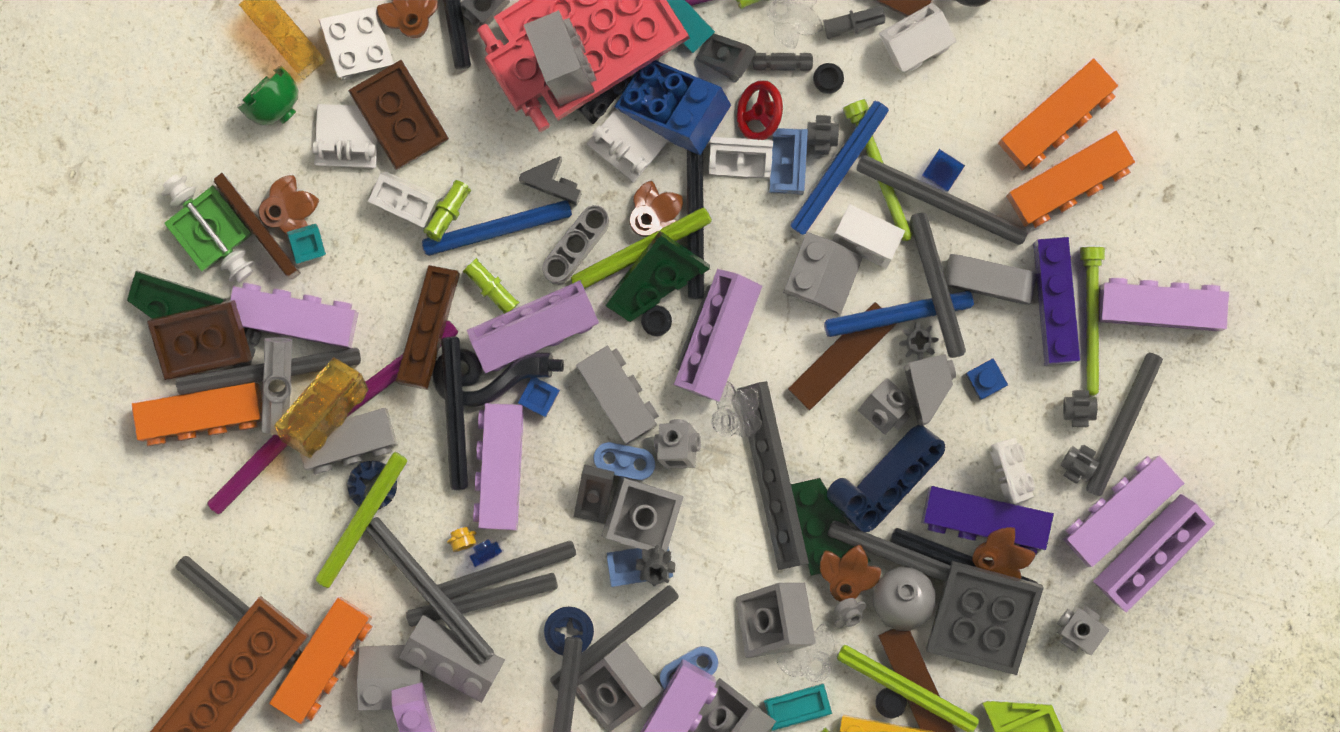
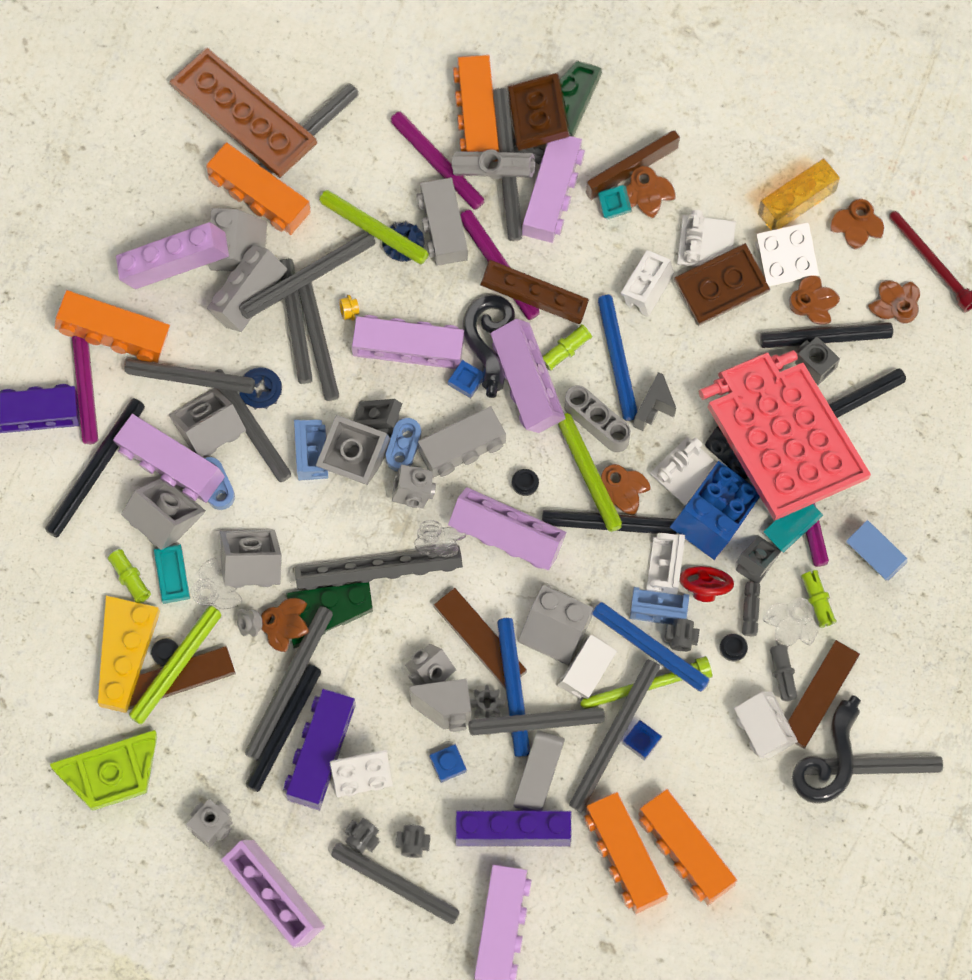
camera: 90 degrees right, 15 degrees down
(208, 228) = (632, 126): bright green plate -> none
(271, 99) = (740, 182): green cylinder -> none
(321, 408) = (471, 197): clear yellow brick -> none
(447, 210) = (635, 315): lime pin -> none
(454, 413) = (458, 307): black axle -> none
(485, 551) = (335, 325): clear blue plate -> none
(561, 57) = (758, 396): light grey brick -> none
(654, 275) = (564, 479): dark green wing -> none
(655, 565) = (307, 452): dark grey gear -> none
(889, 480) = (361, 663): dark blue beam -> none
(904, 598) = (256, 670): light grey cylinder -> none
(984, 618) = (231, 736): dark grey plate -> none
(1006, 556) = (284, 751): dark orange plate -> none
(1092, 259) = (550, 866): lime piece -> none
(1123, 510) = (315, 872): lavender brick -> none

